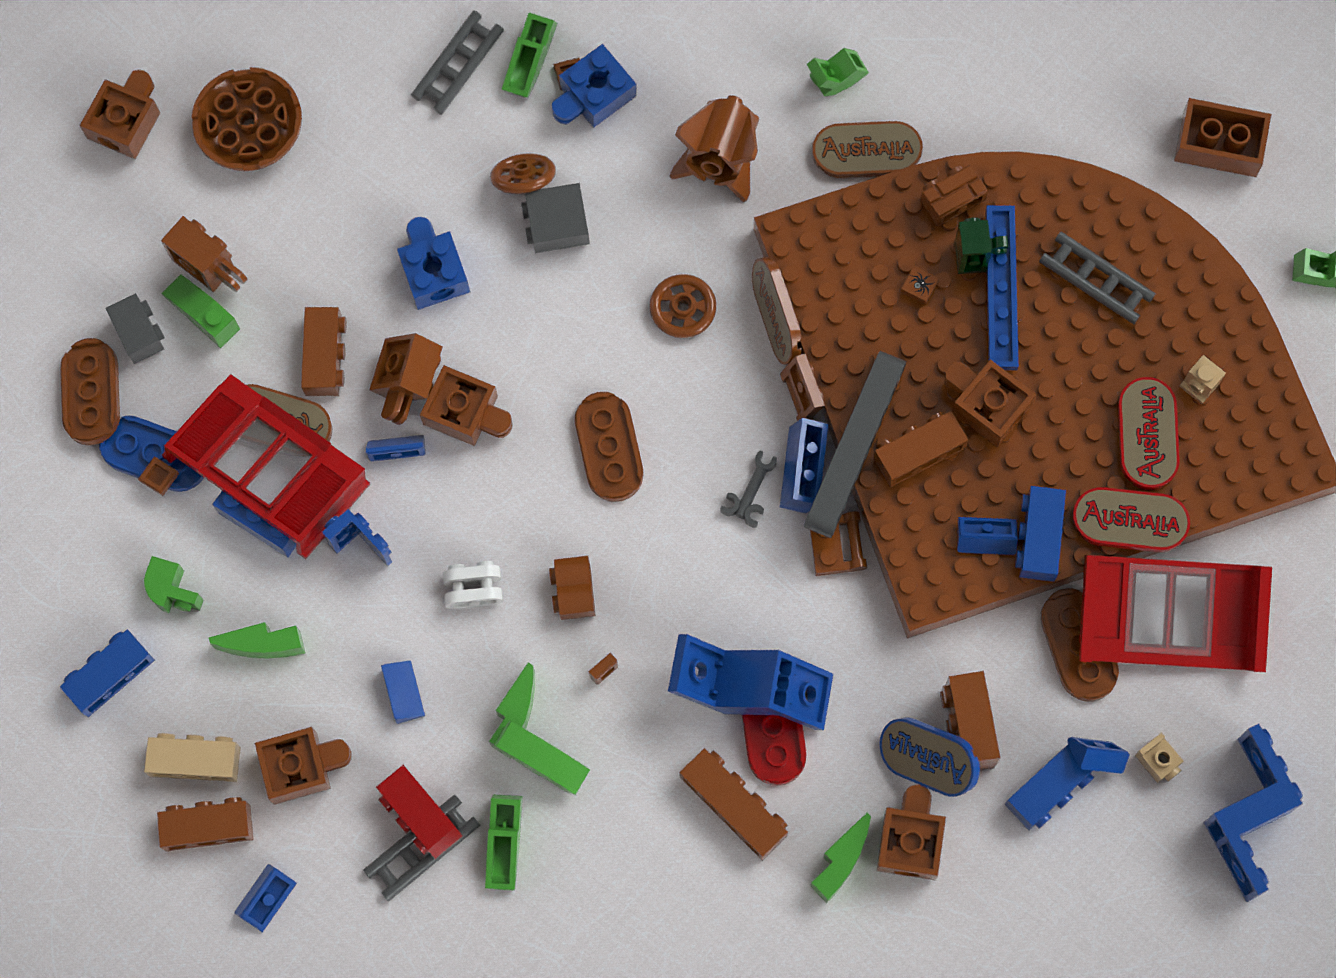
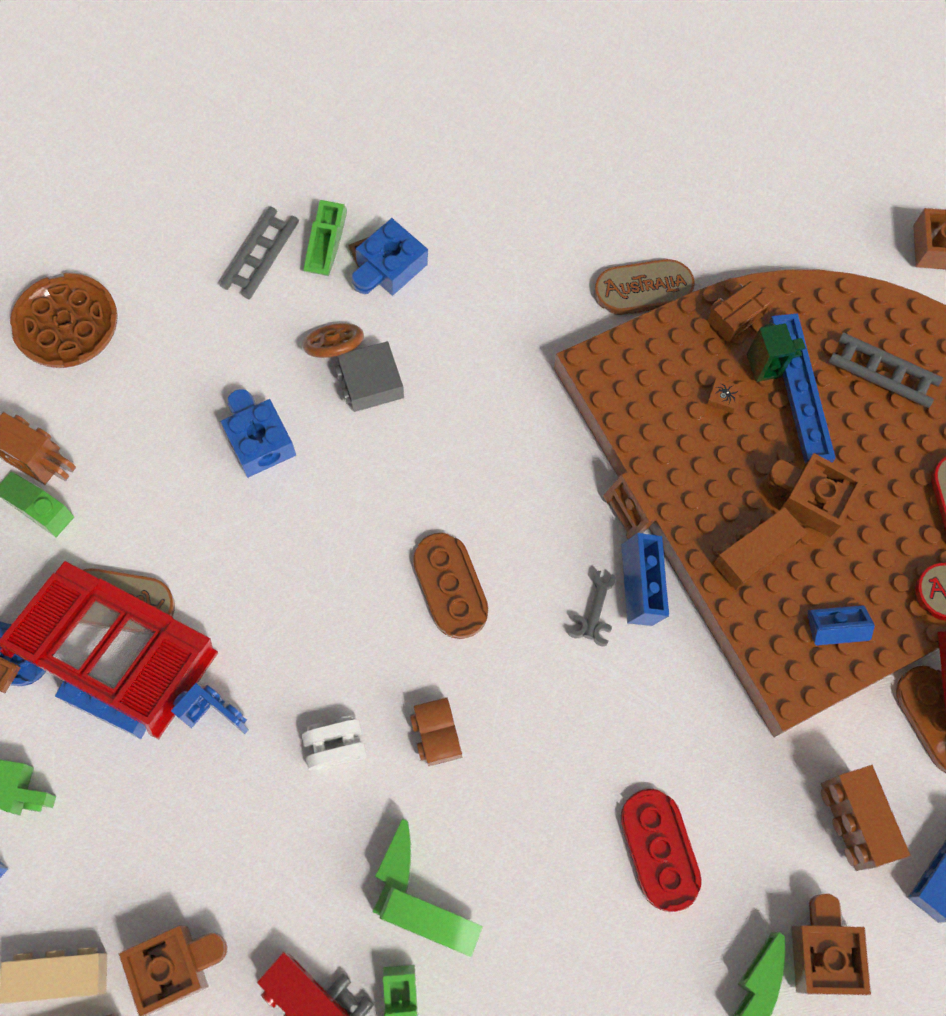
camera: 15 degrees left, 5 degrees down
(260, 642) = (119, 834): bright green slope -> none
(323, 351) = (157, 528): dark orange brick -> none
(396, 448) = (240, 613): blue slope -> none
(403, 691) = (274, 866): blue slope -> none
(405, 373) = (241, 538): dark orange brick -> none
(464, 408) = (303, 565): dark orange brick -> none
(603, 668) = (480, 813): dark orange tile -> none
(690, 327) = (504, 423): dark orange plate -> none
(719, 145) = (514, 291): dark orange brick -> none
(734, 804) = (639, 942): dark orange brick -> none
(750, 682) = (634, 808): blue bracket -> none
(776, 309) = (591, 436): tile -> none
(828, 551) = (679, 653): dark orange plate -> none
(838, 72) = (606, 223): bright green brick -> none
(855, 444) = (695, 554): dark grey beam -> none
(929, 756) = (834, 863): tile -> none
(1041, 533) = (895, 616): blue brick -> none

